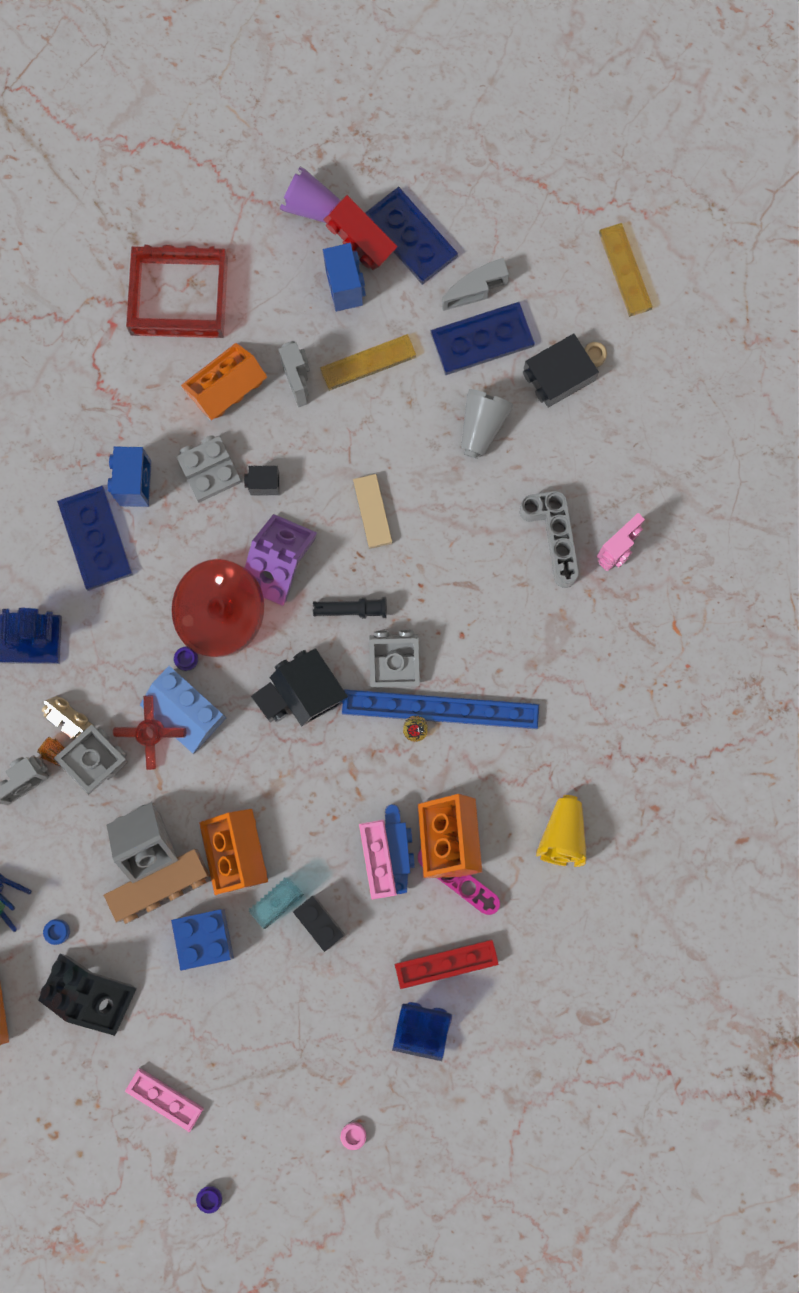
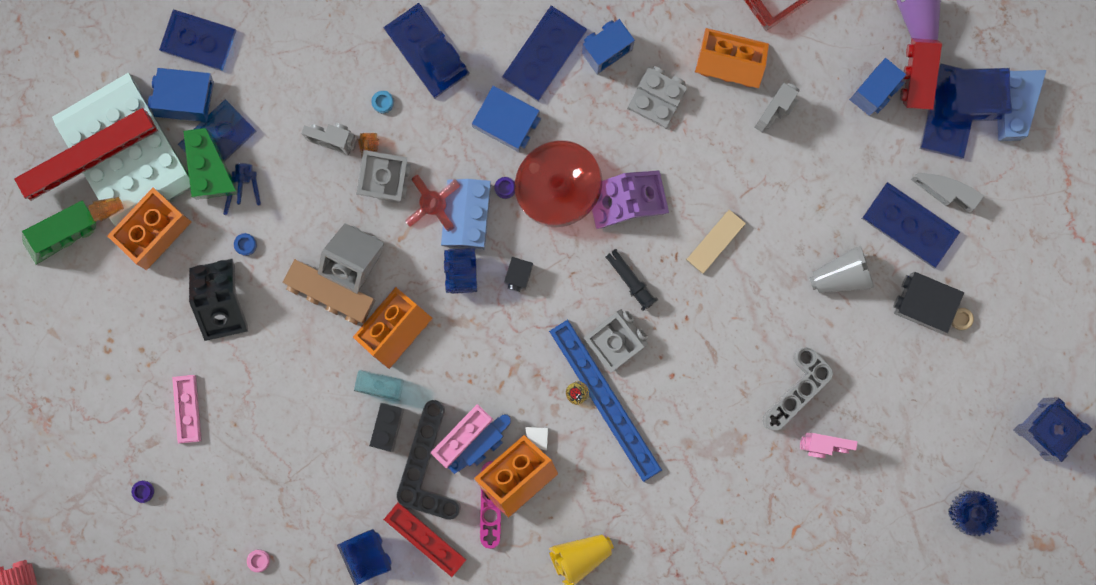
camera: 50 degrees right, 5 degrees up
(26, 711) = (382, 102): none -> dark azure tile
(58, 710) = (400, 144): tan hinge -> none
(126, 612) = (506, 119): none -> blue brick
(202, 939) = (315, 352): blue brick -> none
(228, 751) = (460, 270): none -> clear blue brick
(262, 480) = (678, 143): black brick -> none
(307, 686) = (549, 292): black brick -> none
(368, 362) = (827, 153): clear yellow tile -> none
(377, 916) = (422, 464): none -> black beam
(413, 199) = (977, 94): none -> clear blue container
(428, 792) = (538, 436): none -> white tile
(444, 176) = (1024, 93): none -> medium blue wedge
(625, 269) = (1047, 294): clear yellow tile -> none
(737, 352) = (1039, 429): none -> clear blue container
(778, 452) = (986, 513): none -> clear blue brick

